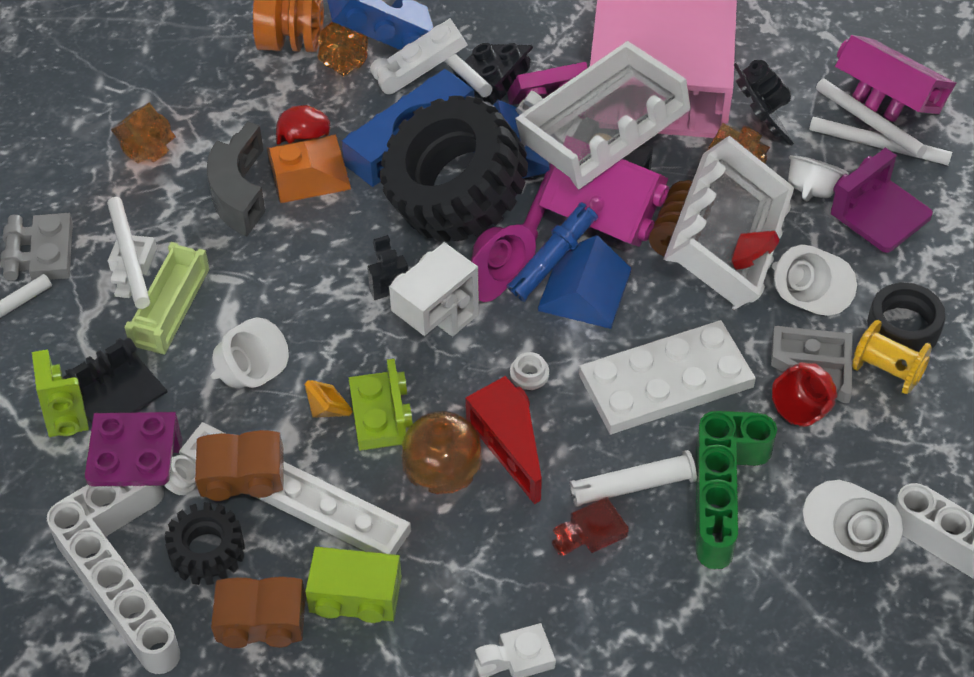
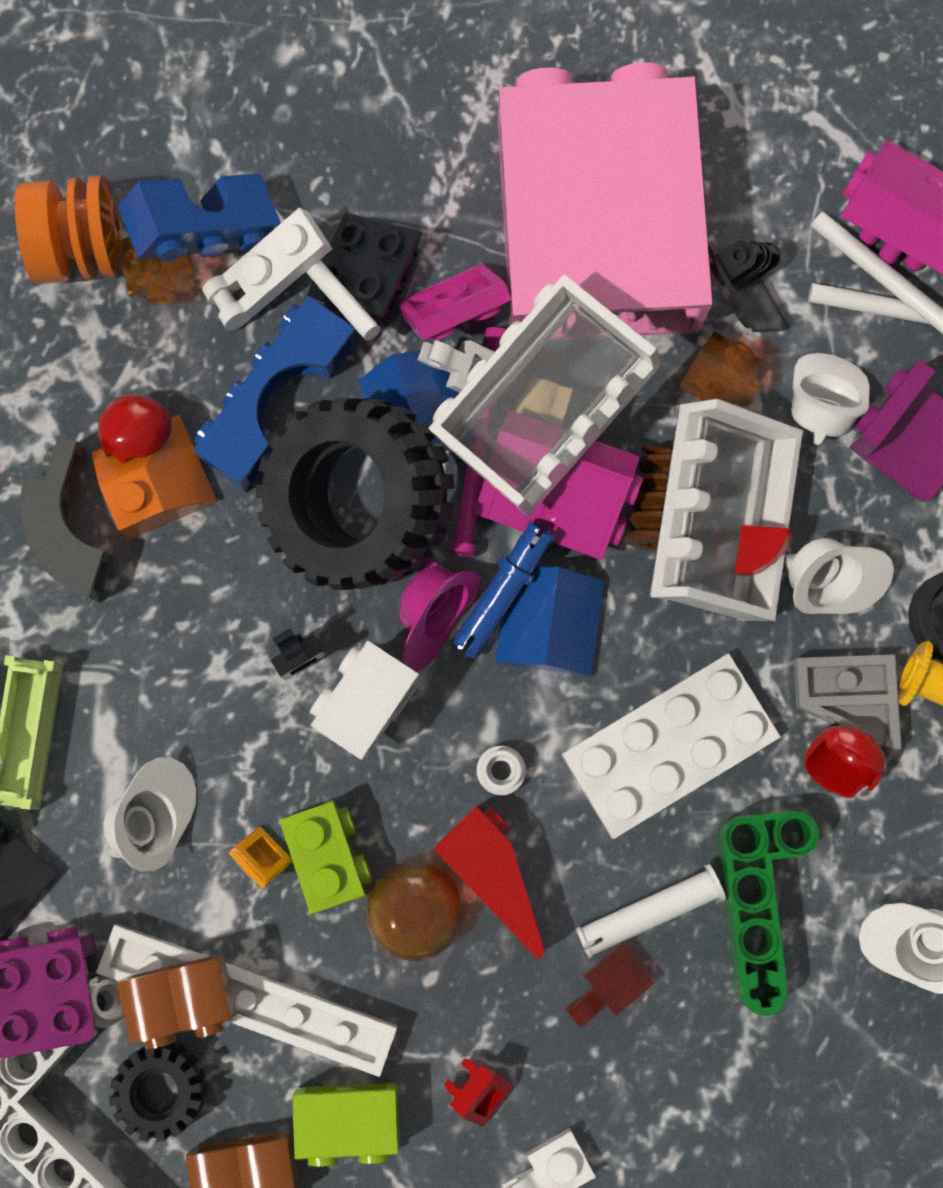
camera: 10 degrees left, 30 degrees up
(470, 582) = (480, 1094): none -> red tile

